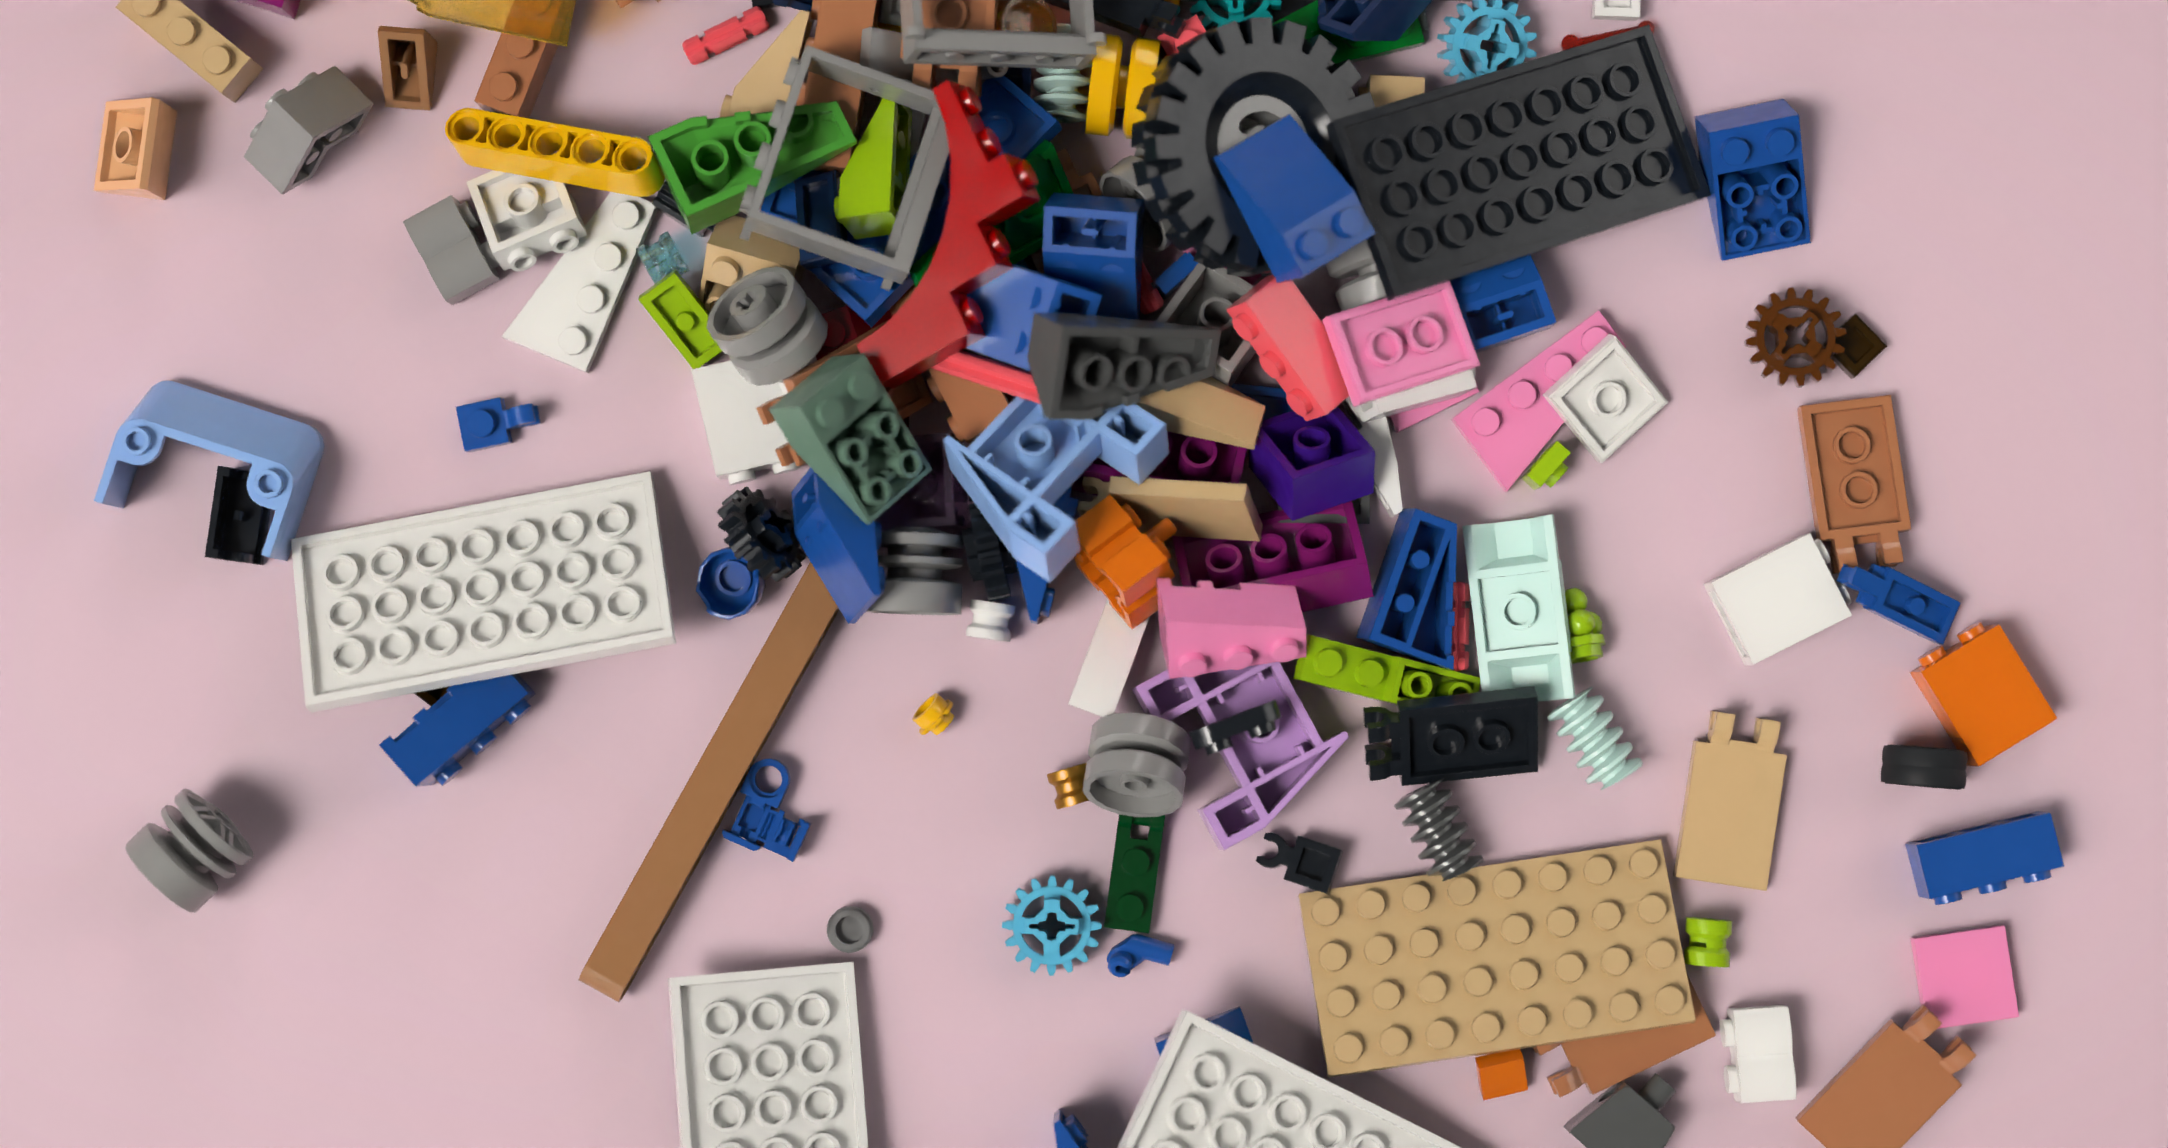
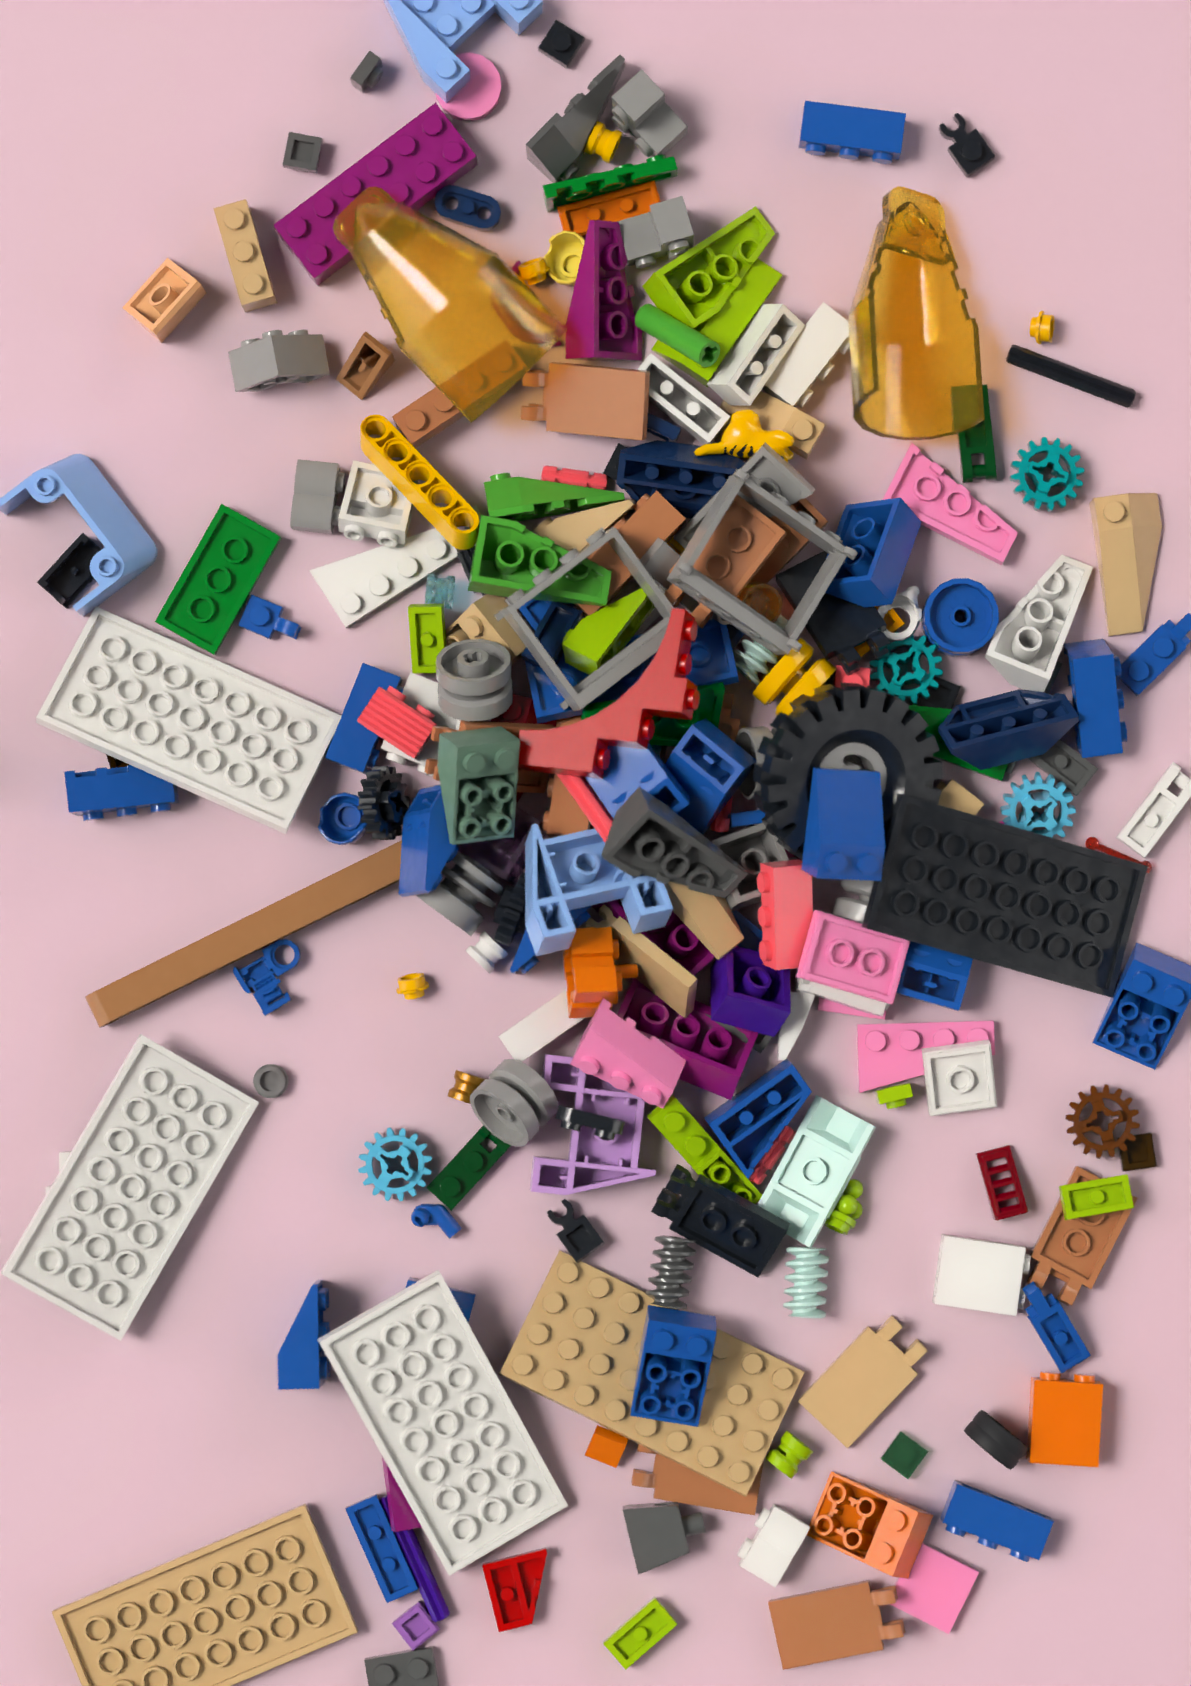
camera: 45 degrees right, 0 degrees up
(407, 416) = (218, 579): none -> green plate
(677, 457) = (353, 743): none -> blue brick
(703, 80) = (532, 499): none -> bright green wedge
(714, 432) = (397, 722): none -> coral brick
(1515, 932) = (673, 1365): none -> blue slope
(1755, 479) = (1008, 1211): none -> dark red slope
(1832, 854) = (903, 1454): none -> clear green tile
(1847, 424) = (1096, 1197): none -> lime plate
(1849, 958) = (869, 1525): none -> orange slope

